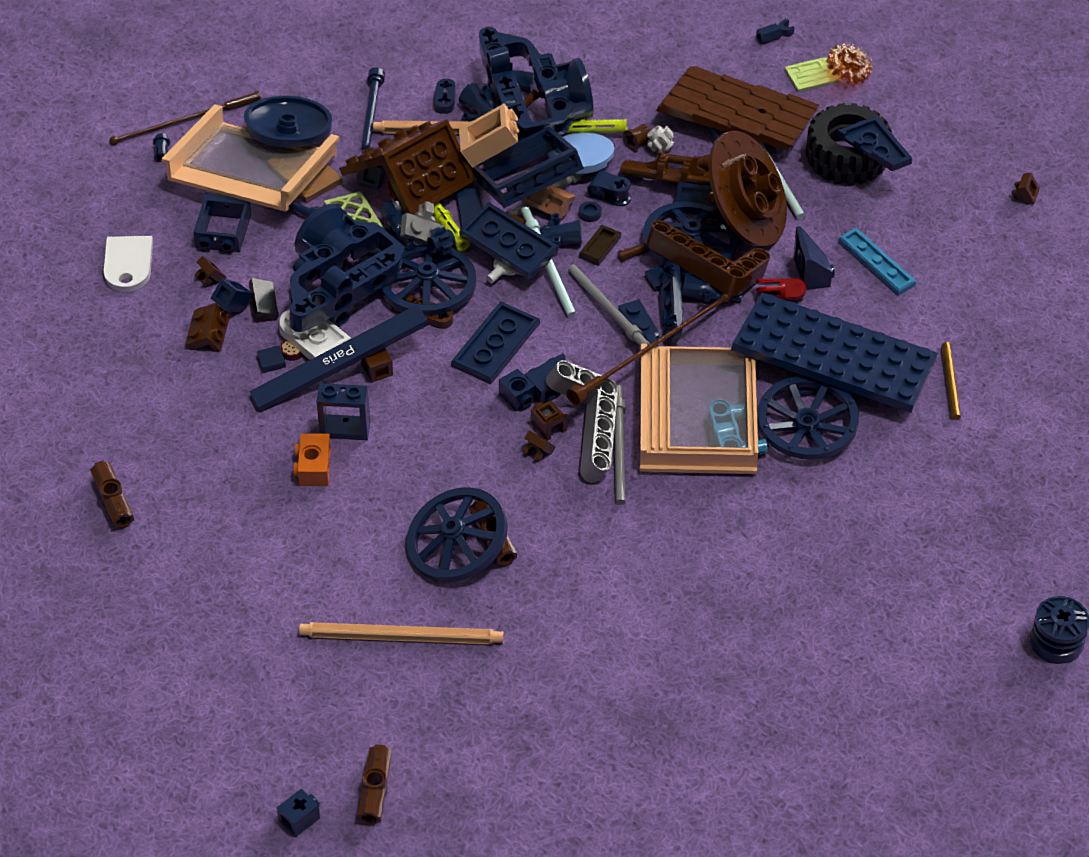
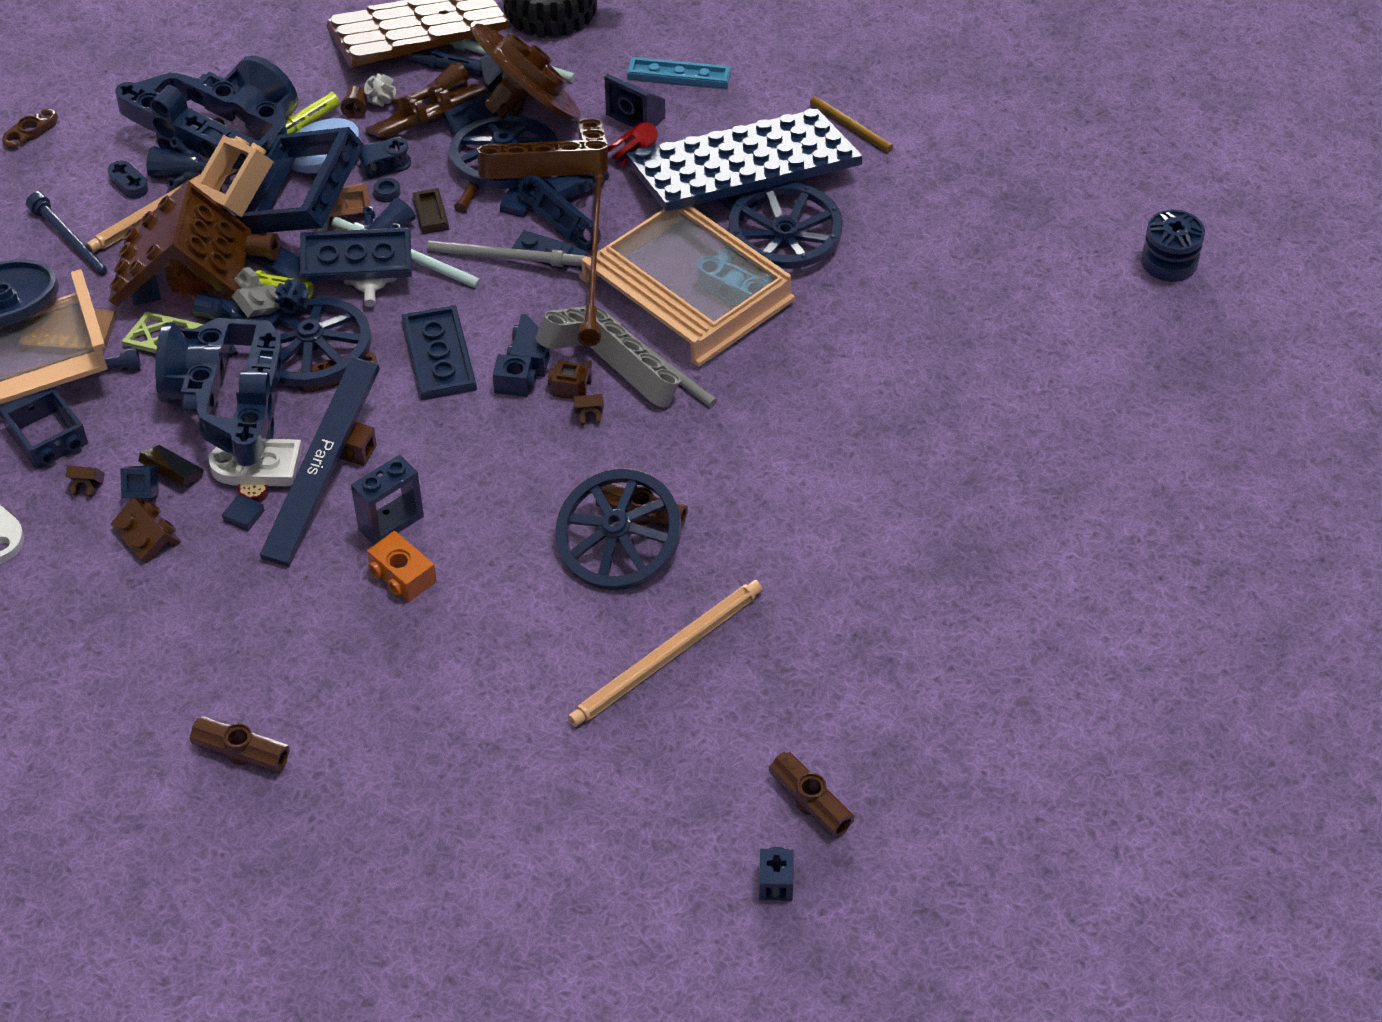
camera: 45 degrees left, 0 degrees up
(418, 20) = (18, 131): none -> reddish brown piece
(467, 197) = (263, 246): none -> reddish brown bush

